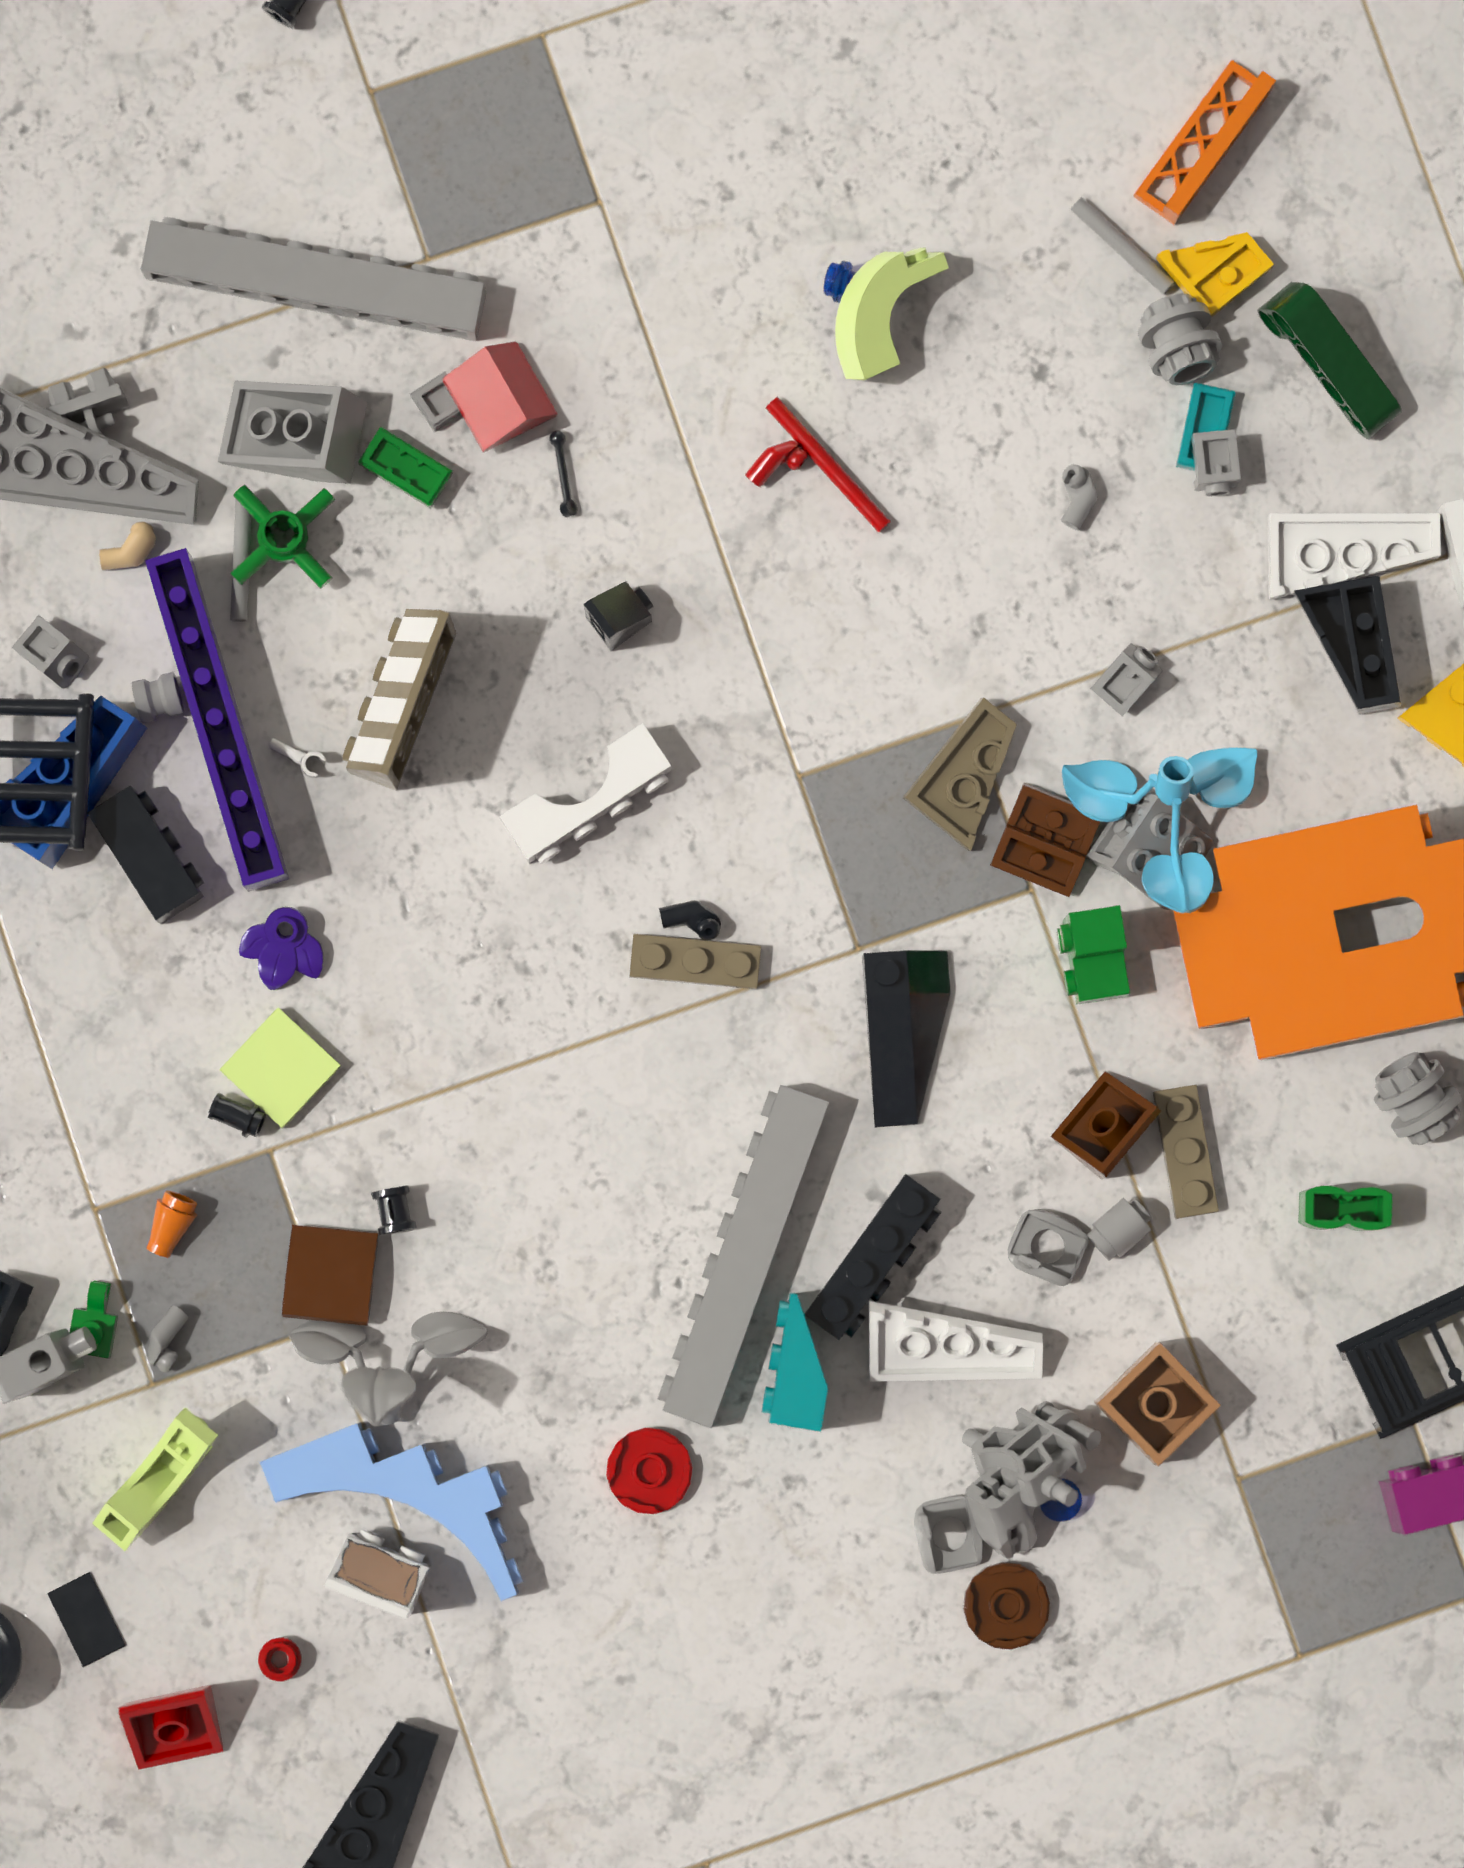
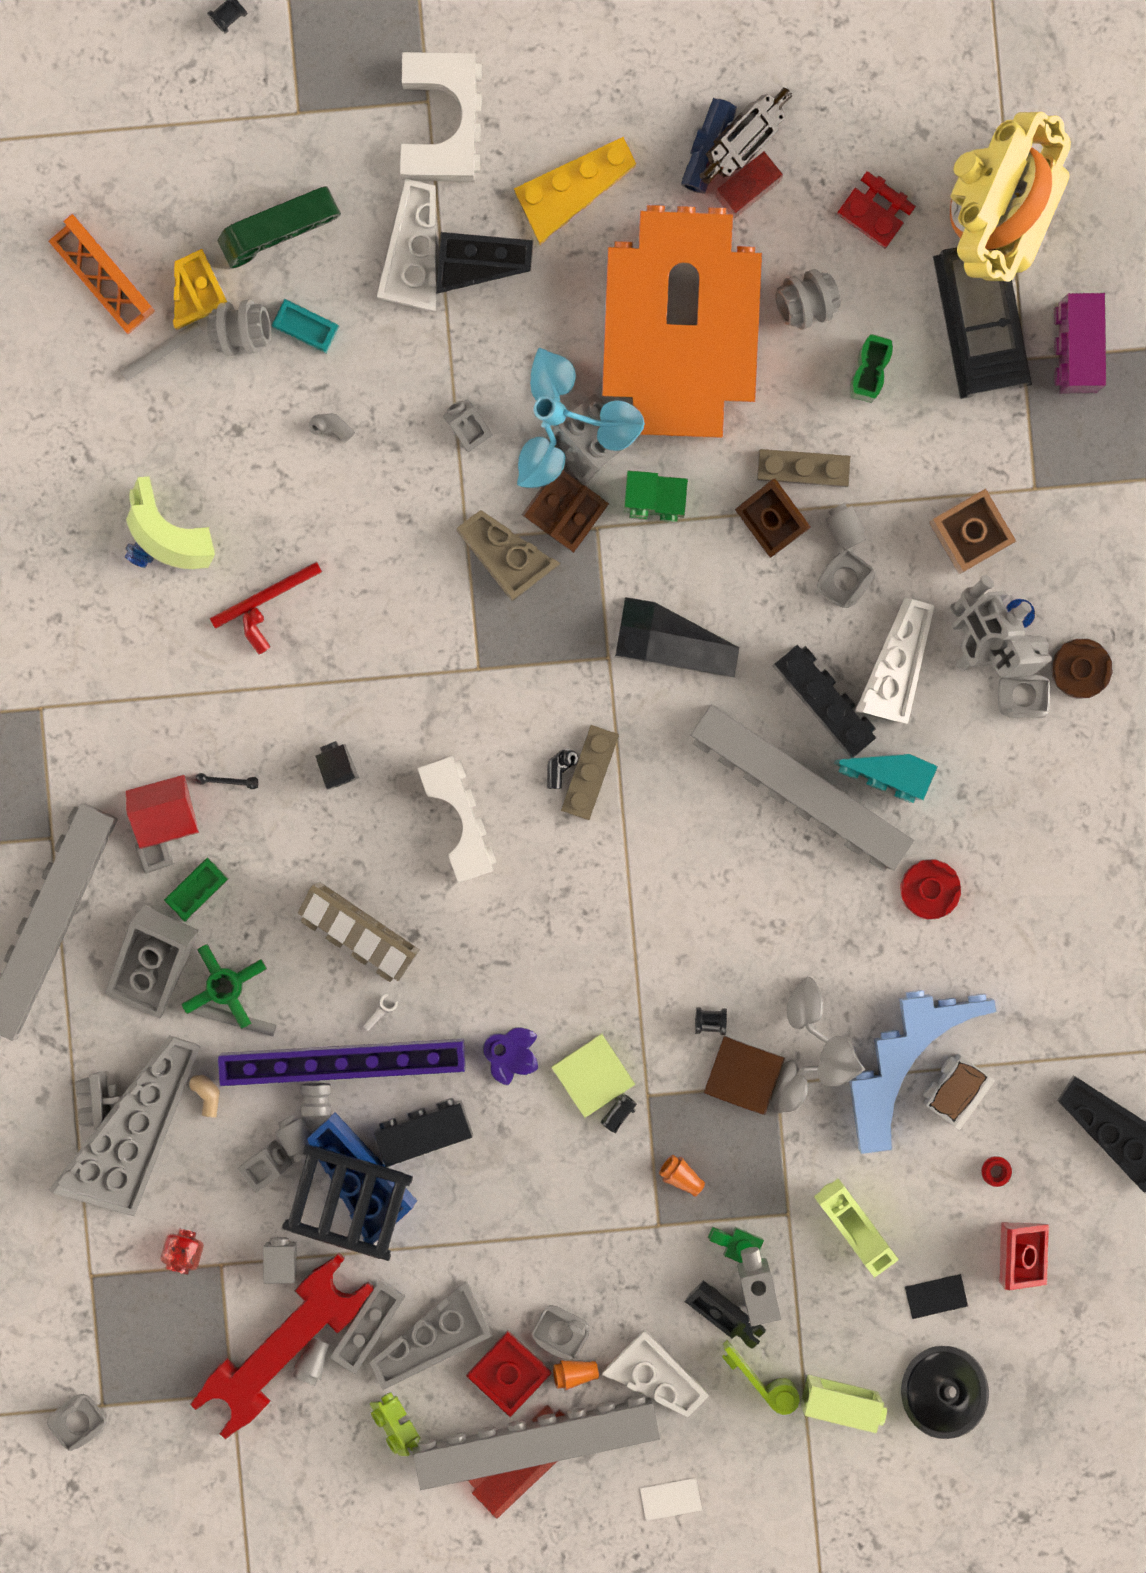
camera: 80 degrees left, 5 degrees up
(100, 678) = (293, 1136): none -> light grey brick
(161, 1337) = (759, 1201): light grey arm -> none
(1216, 462) = (331, 324): light grey bracket -> none

